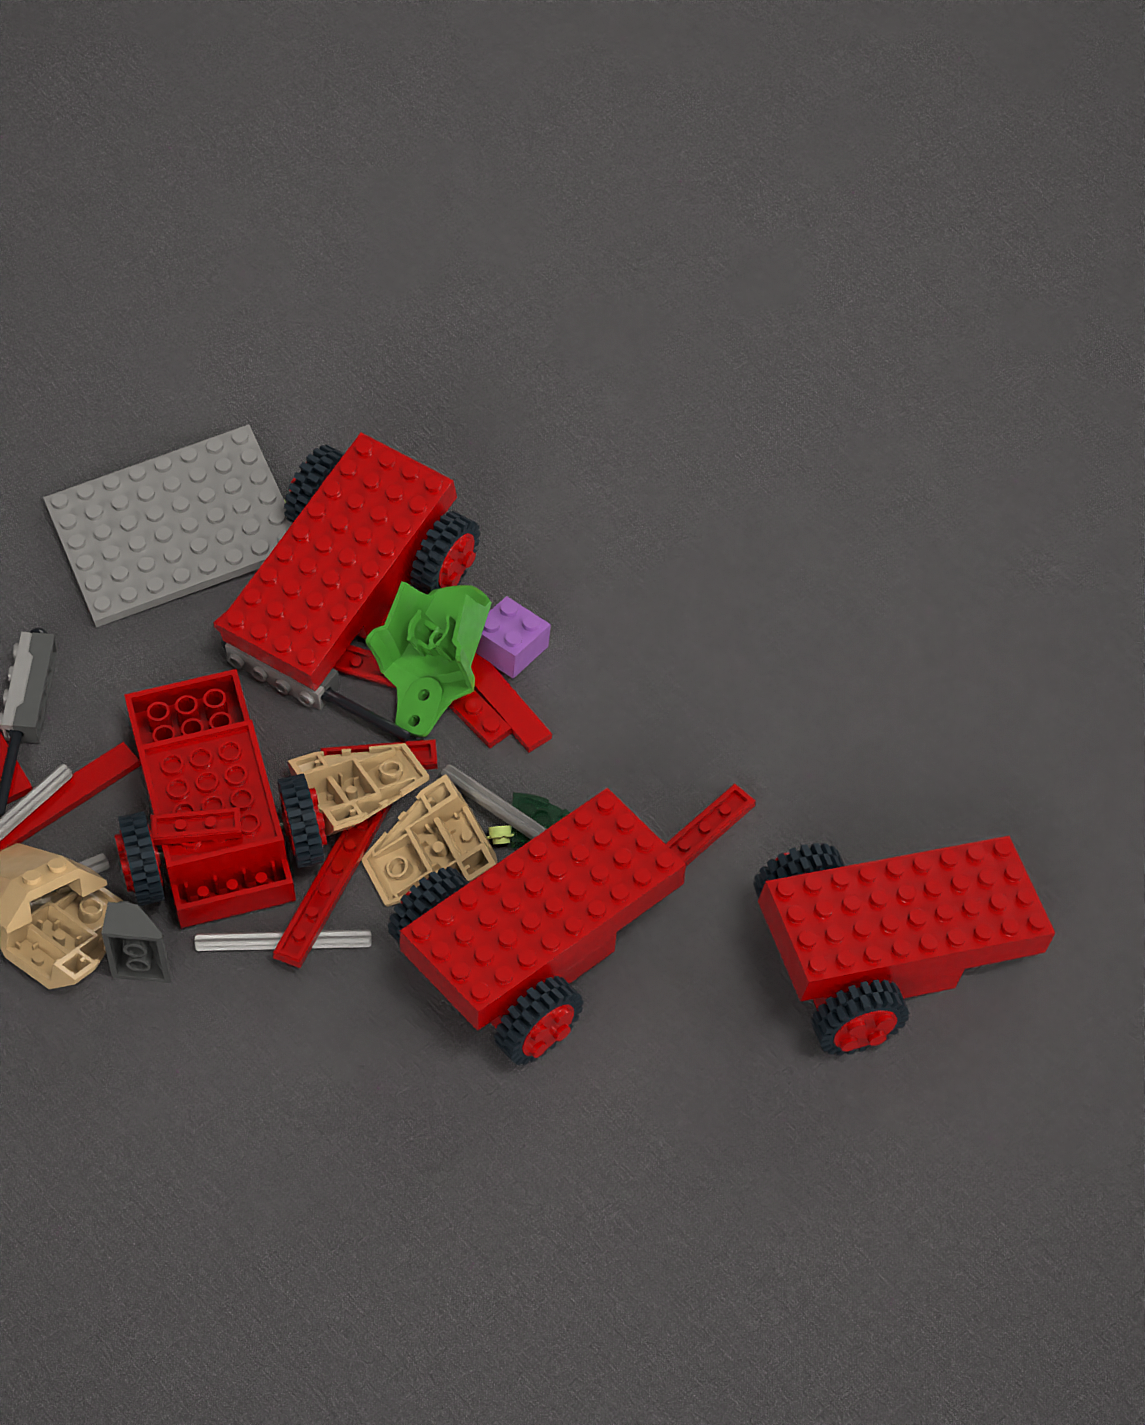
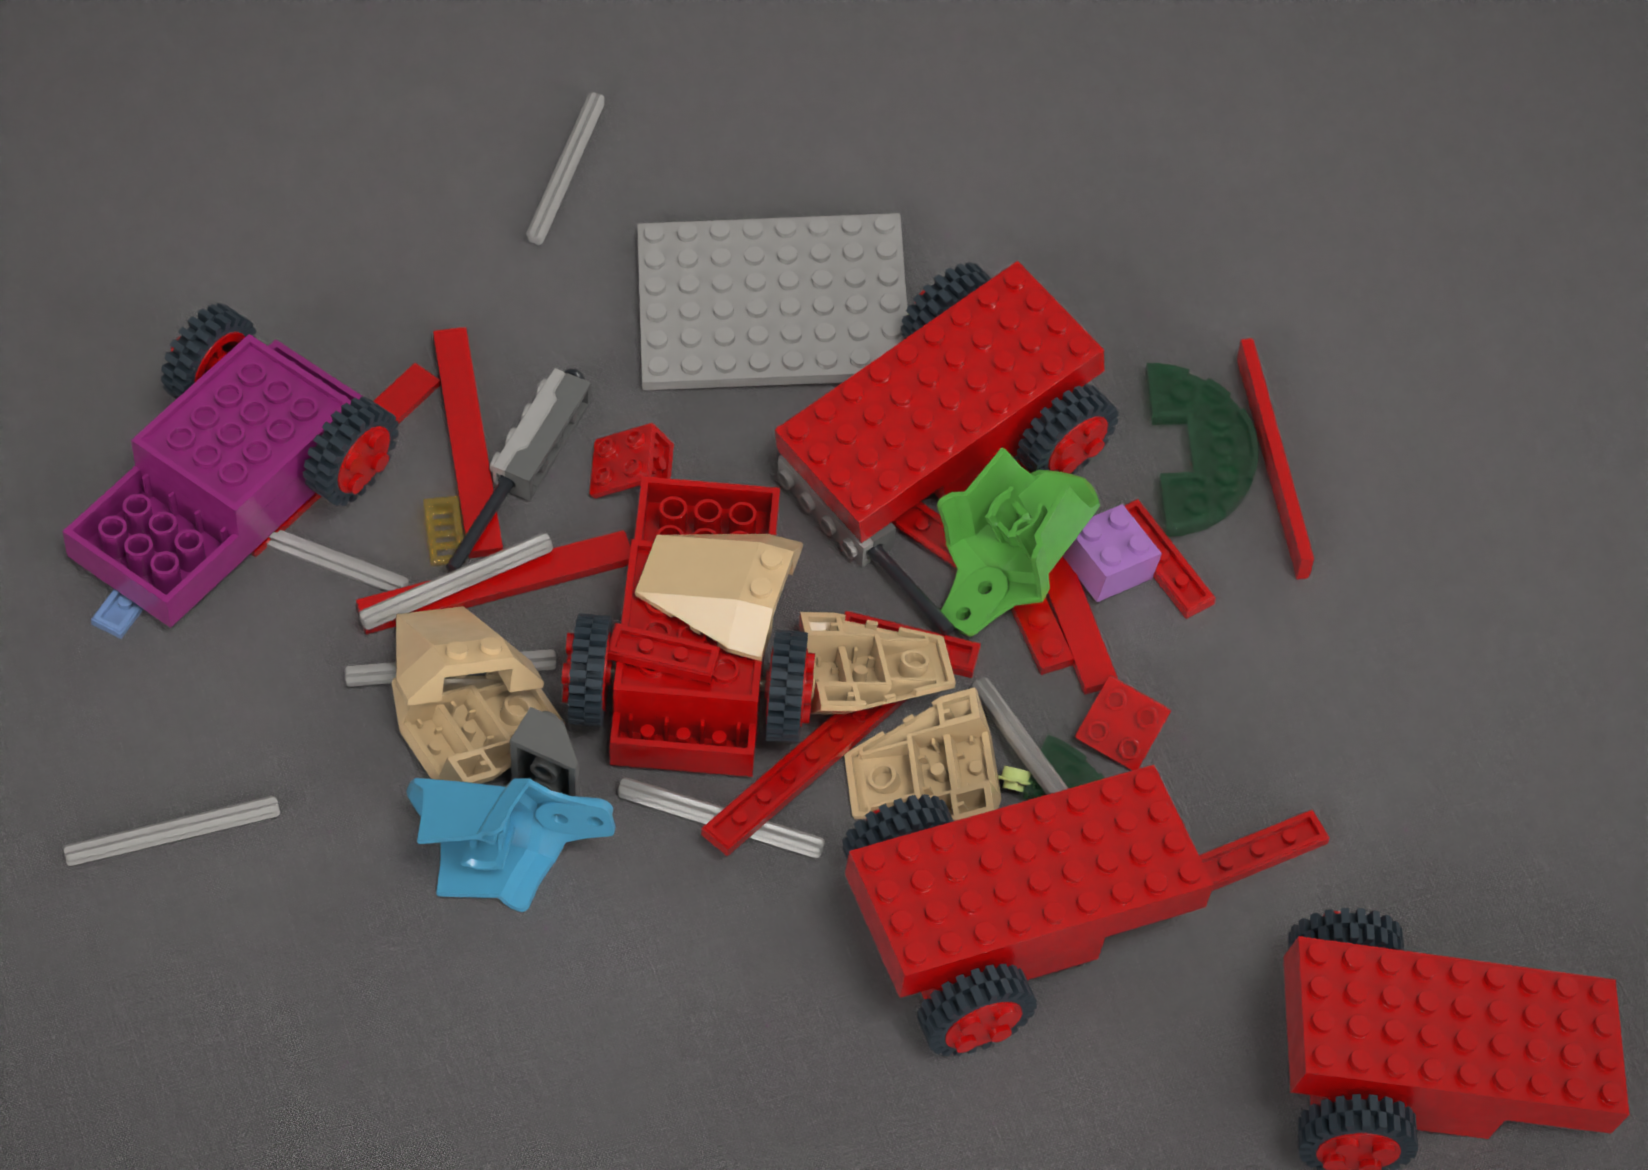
camera: 15 degrees right, 0 degrees up
(105, 683) = (627, 456): none -> red bracket
(119, 1011) = (502, 837): none -> dark azure piece
(221, 758) = (721, 585): none -> tan wedge
(563, 528) = (1219, 444): none -> clear green plate
(563, 636) = (1173, 570): none -> red tile
(568, 765) = (1123, 723): none -> red bracket
(609, 524) = (1275, 459): none -> red tile

